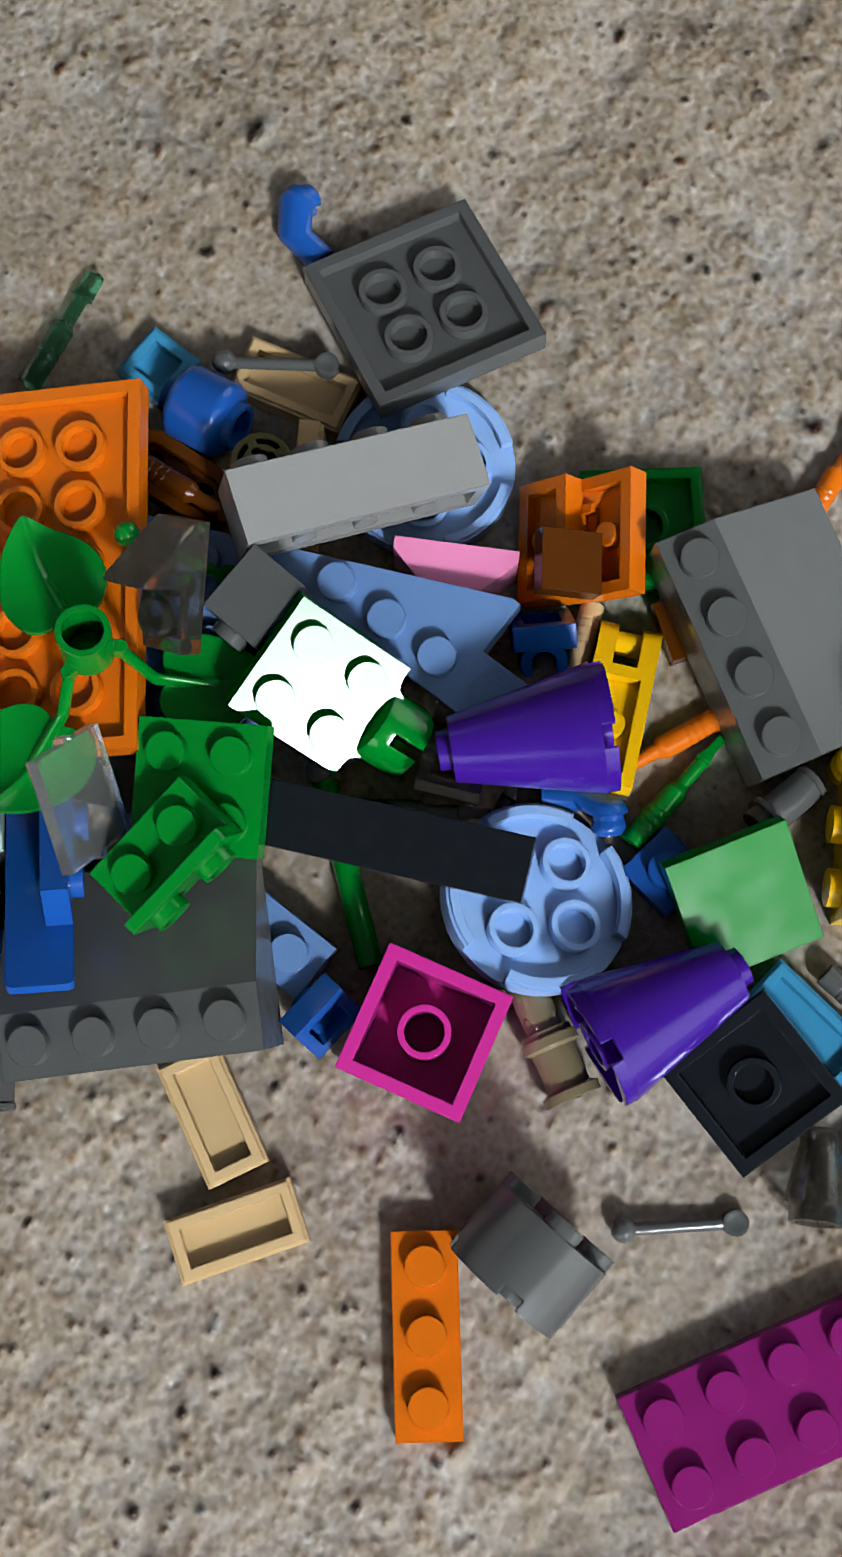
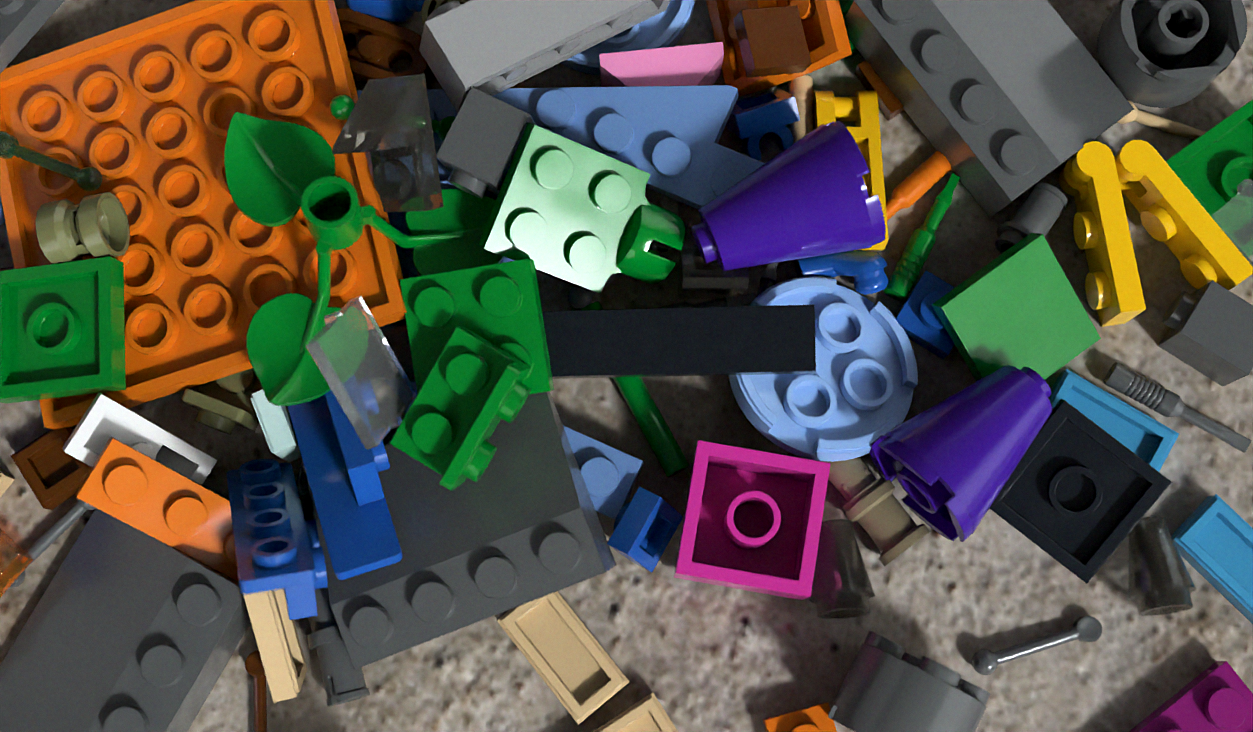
camera: 15 degrees left, 0 degrees up
(182, 487) = (383, 57): reddish brown piece -> none
(500, 1107) = (840, 576): none -> clear smoke cone

